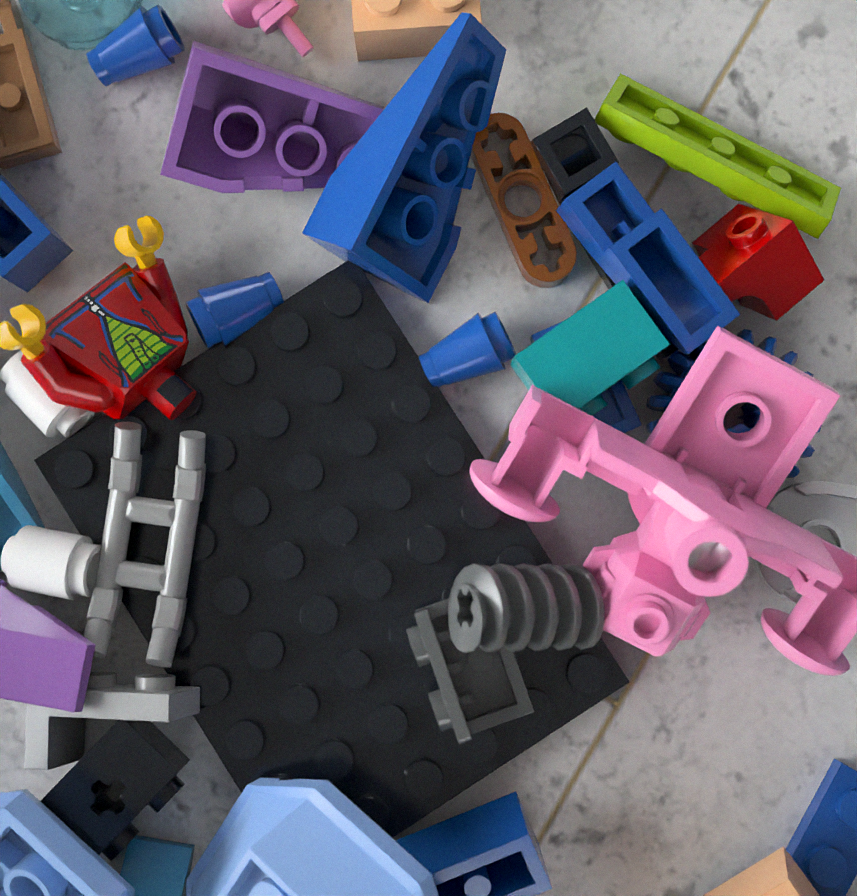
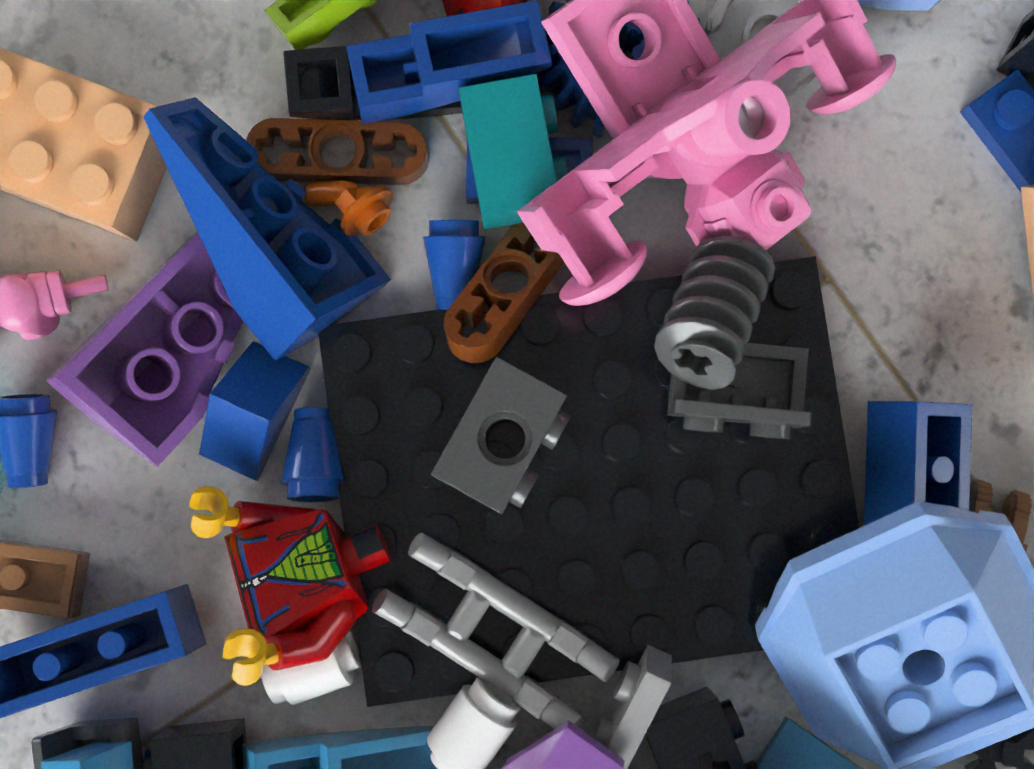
camera: 65 degrees left, 0 degrees up
(251, 233) = (251, 410): none -> blue slope
(287, 449) = (502, 396): none -> dark grey brick
(429, 384) = (506, 309): none -> dark orange beam
(479, 246) = (362, 207): none -> orange plate

